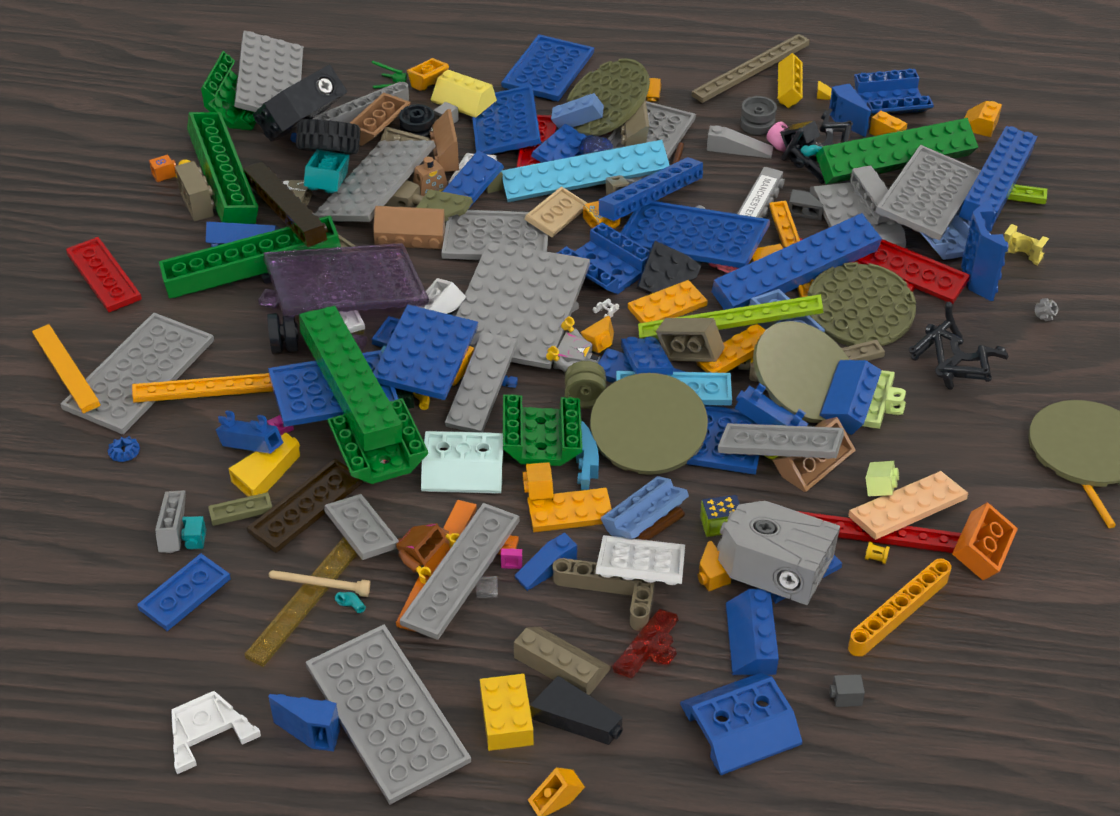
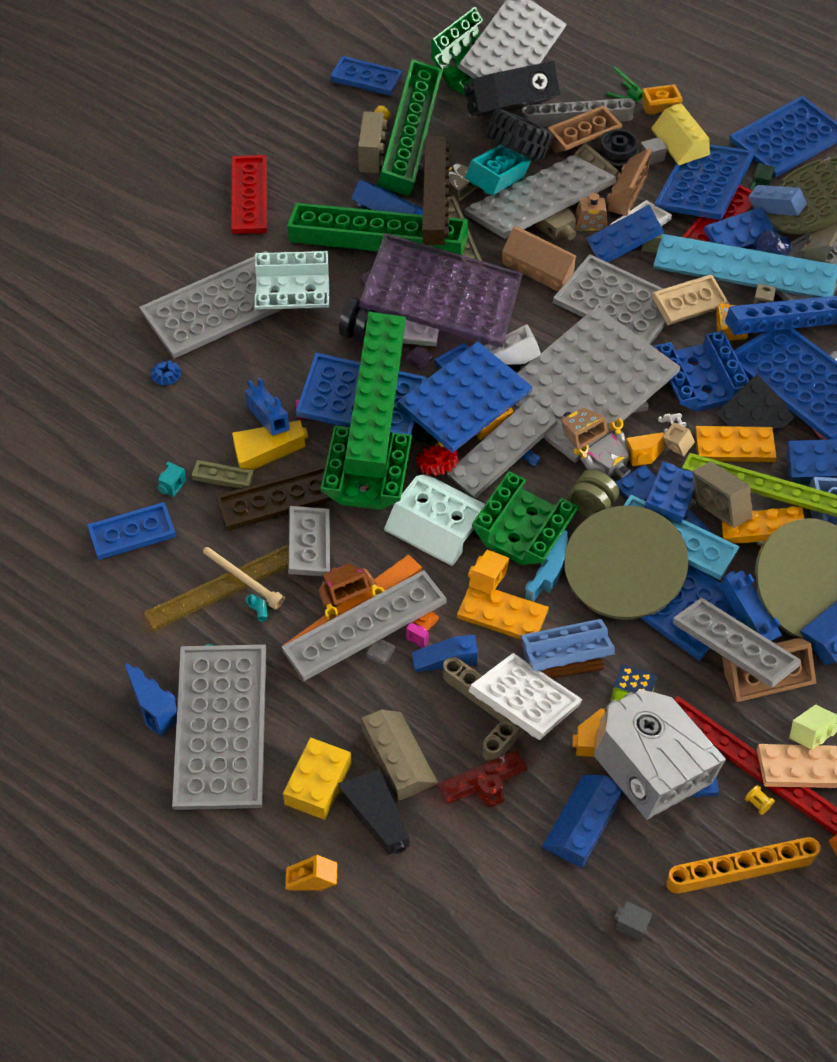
camera: 30 degrees right, 10 degrees up
(66, 368) = (163, 275): light orange tile -> none
(149, 143) = (366, 75): none -> blue plate
(162, 168) = (360, 104): orange brick -> none
(170, 522) = (154, 462): light grey slope -> none
(200, 321) = (292, 276): none -> light aqua slope
(201, 387) = (256, 341): light orange tile -> none
(201, 720) = (73, 655): white wing -> none
(431, 414) = (436, 460): none -> red gear
(451, 203) = (586, 248): olive plate -> none
(544, 333) = (583, 427): none -> medium nougat torso
(548, 101) = (763, 175): none -> clear green brick
(623, 316) = (678, 439): none -> tan brick
(750, 730) = (514, 911): blue slope -> none

